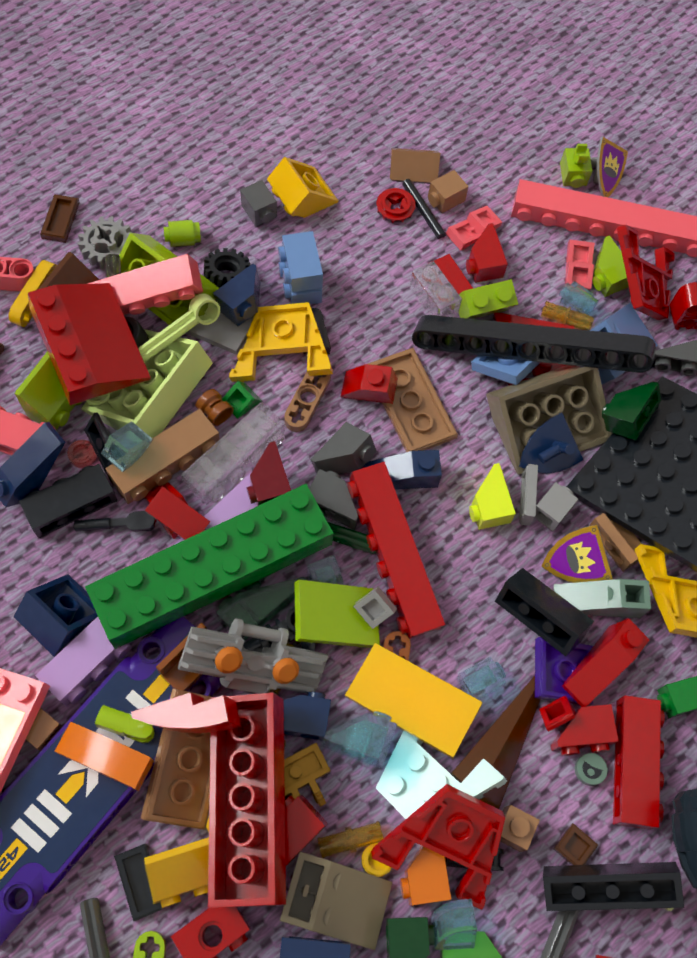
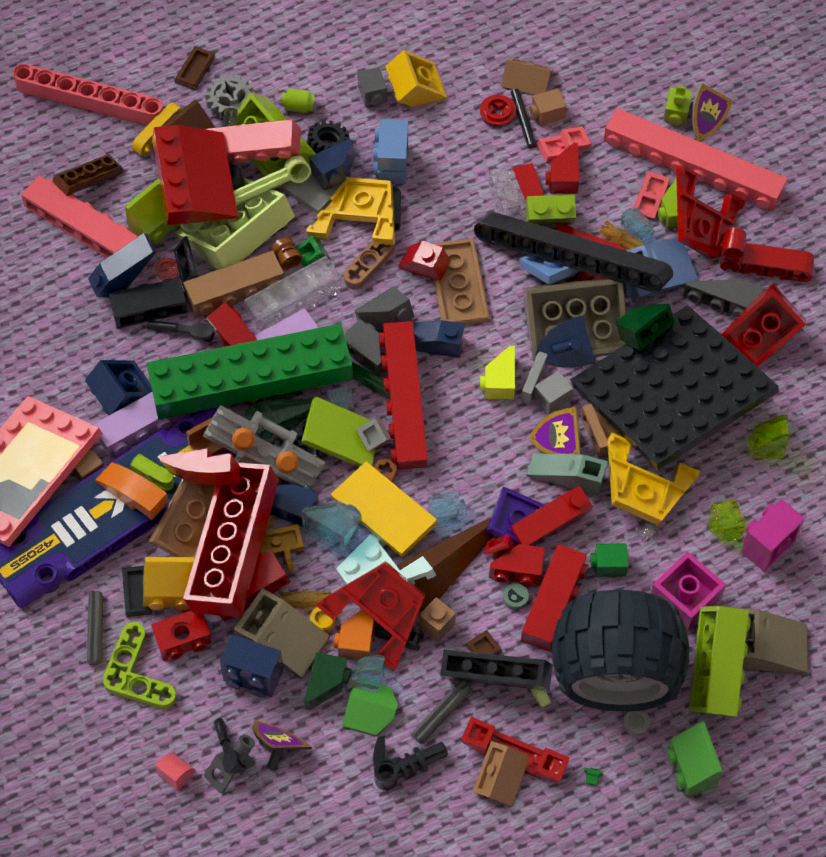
camera: 20 degrees right, 5 degrees down
(126, 446) = (204, 266): clear light blue brick -> none
(268, 477) = (312, 312): dark red slope -> none
(544, 611) = (513, 468): black brick -> none

